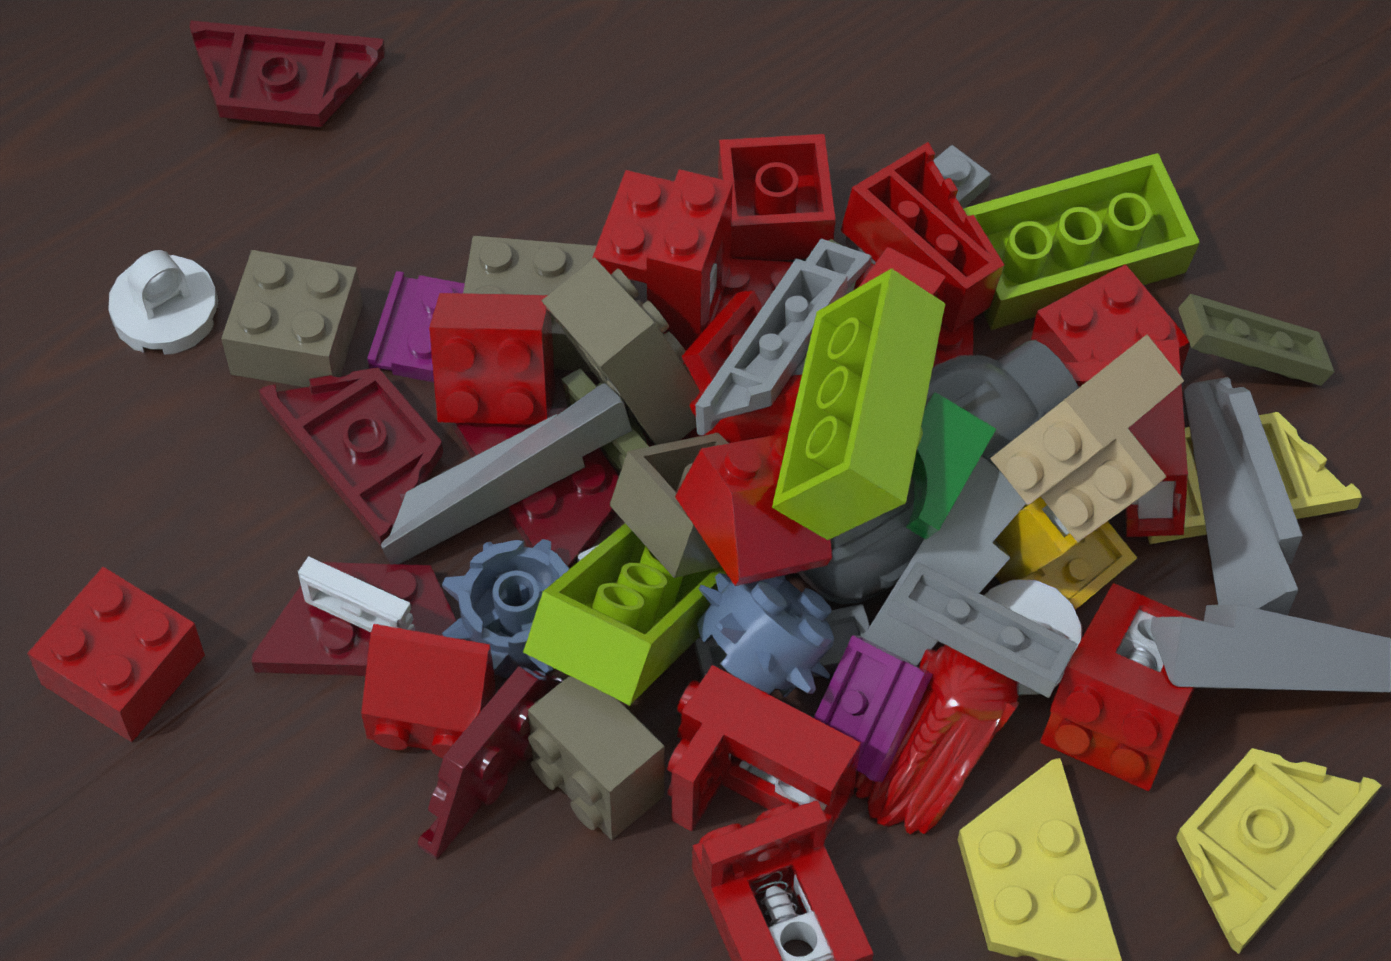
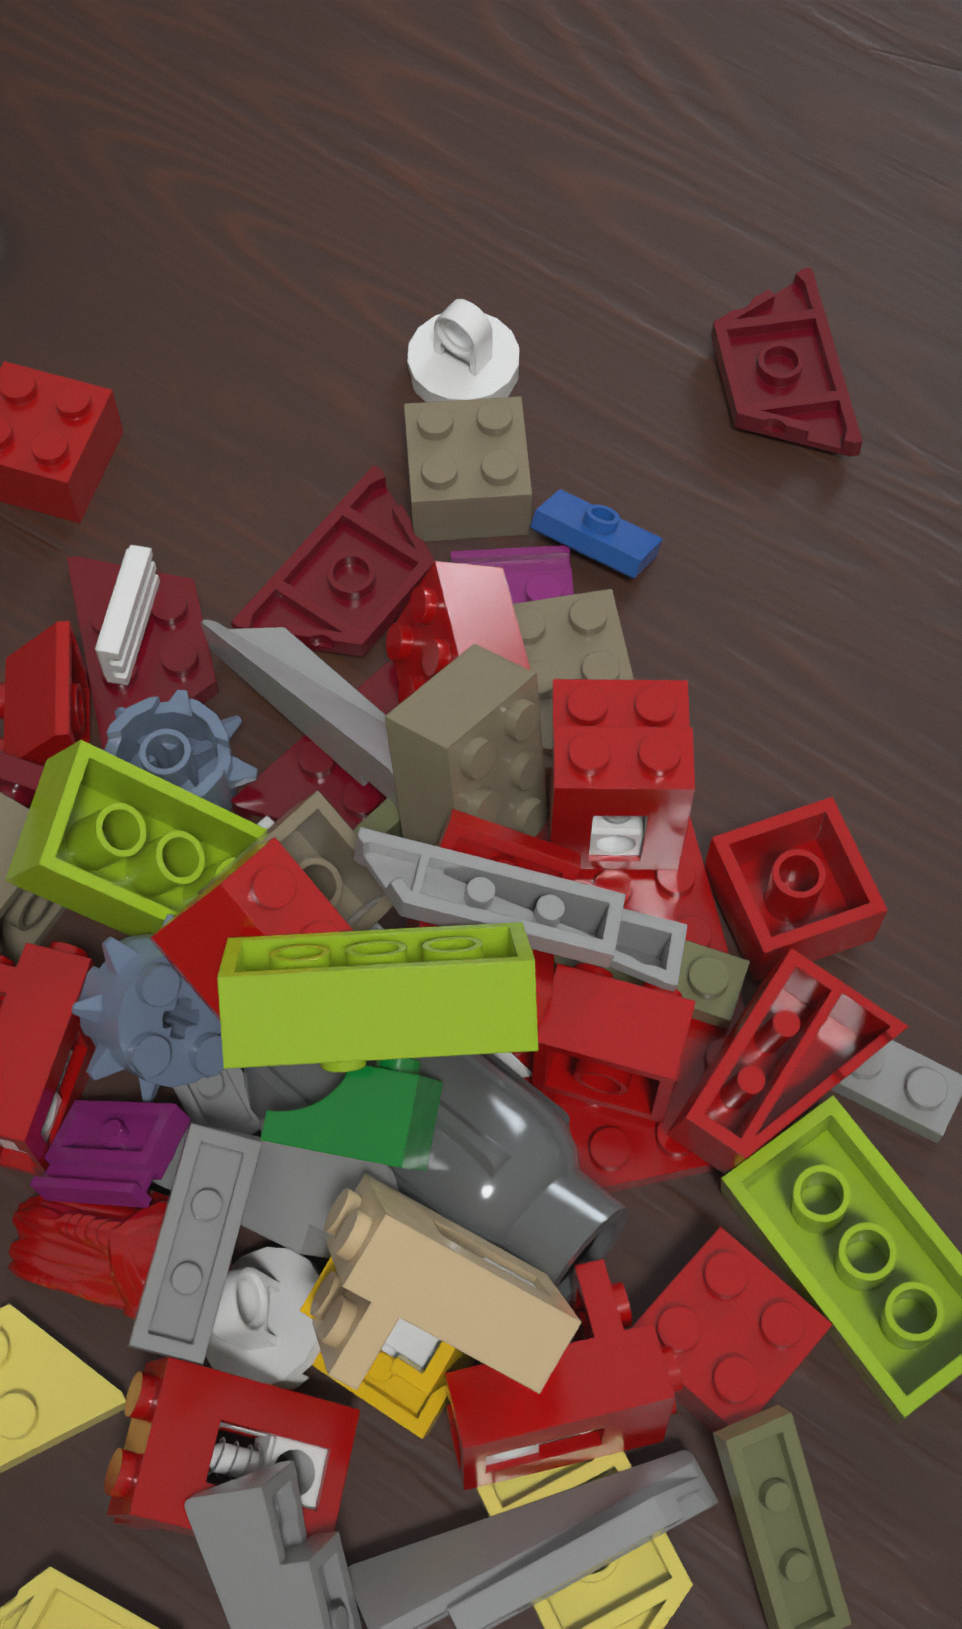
camera: 75 degrees right, 5 degrees up
(395, 246) = (596, 533): none -> blue plate

